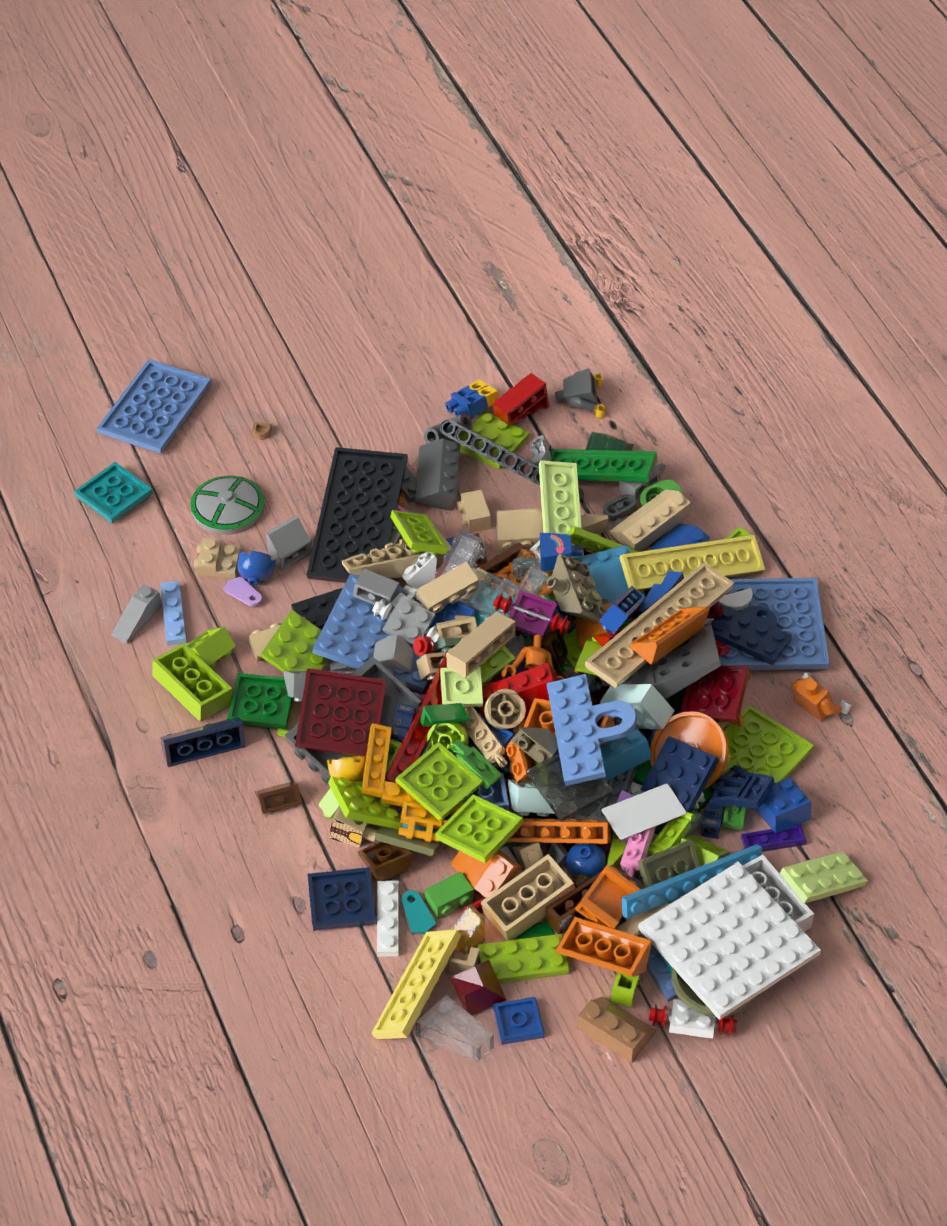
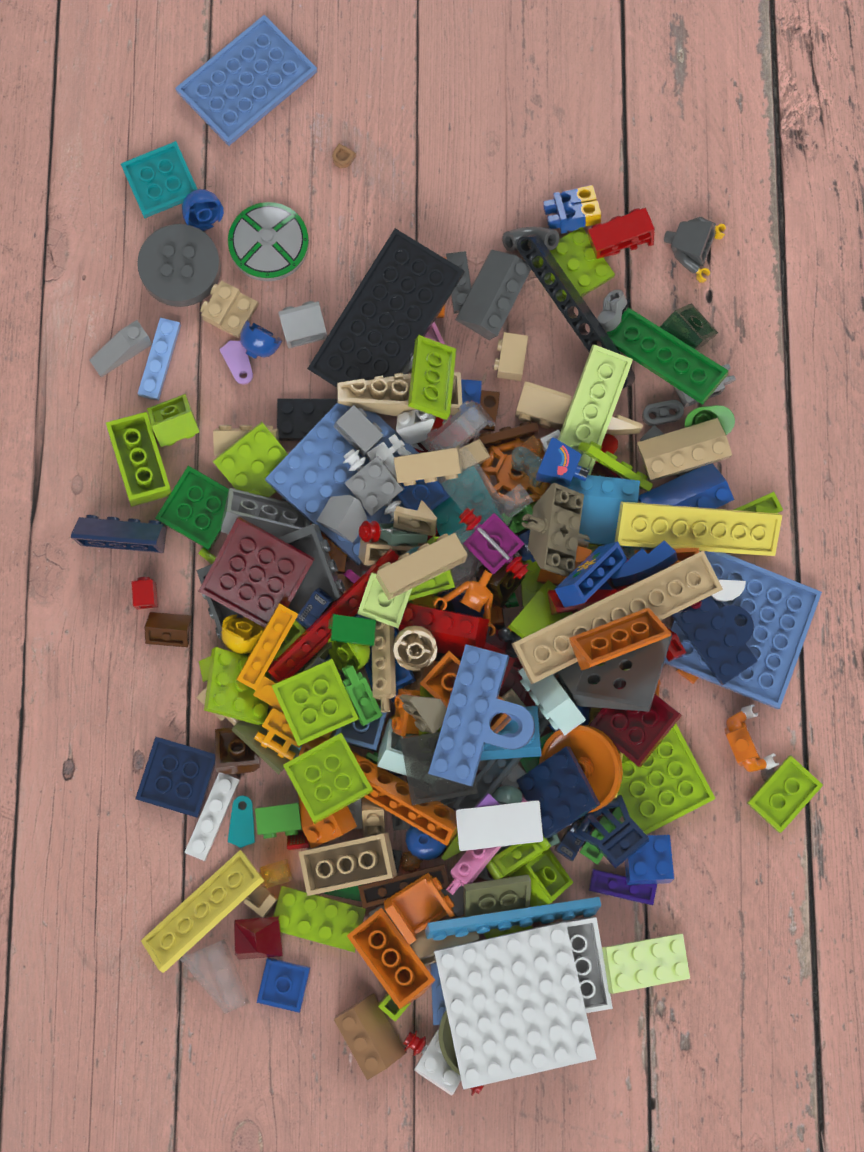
camera: 20 degrees right, 30 degrees up
(159, 543) = (179, 265): none -> dark grey brick
(161, 497) = (202, 209): none -> blue cylinder
(245, 776) = (144, 593): none -> red brick
(868, 723) = (784, 794): none -> lime plate

